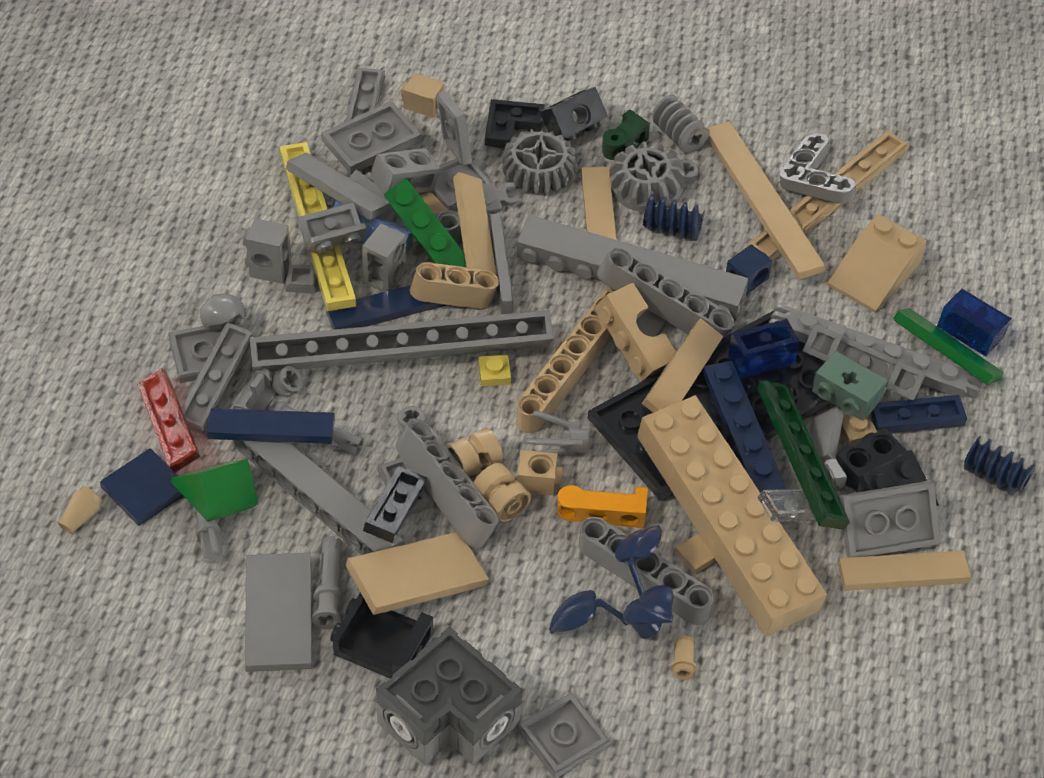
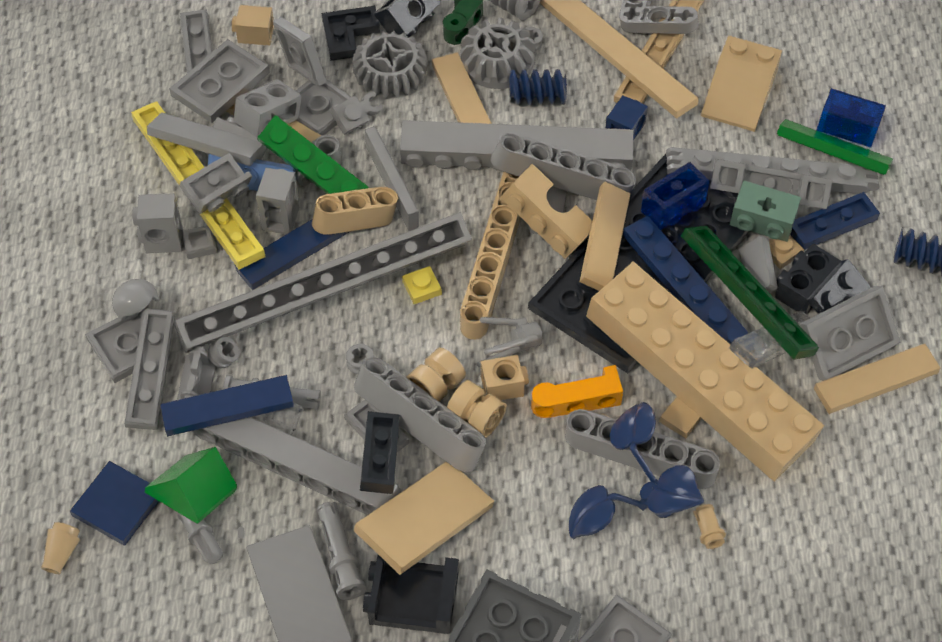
camera: 15 degrees left, 5 degrees up
(168, 420) = (118, 427): clear red tile -> none
(474, 222) = (352, 142): tan tile -> none
(835, 473) = (785, 300): light grey tile -> none

